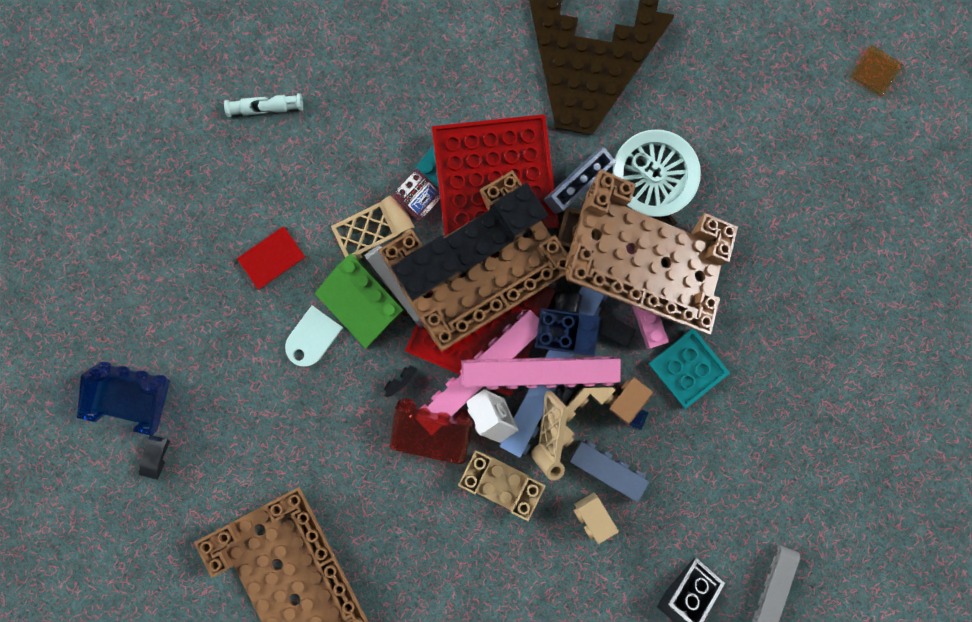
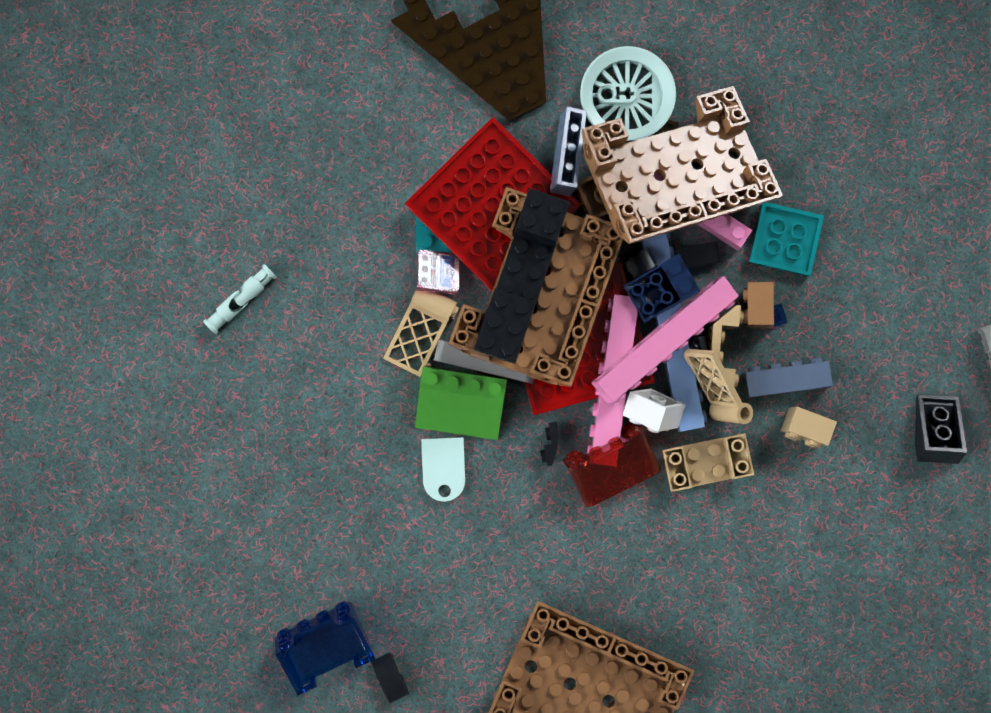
camera: 45 degrees left, 0 degrees up
(271, 258) = (352, 426): red tile -> none

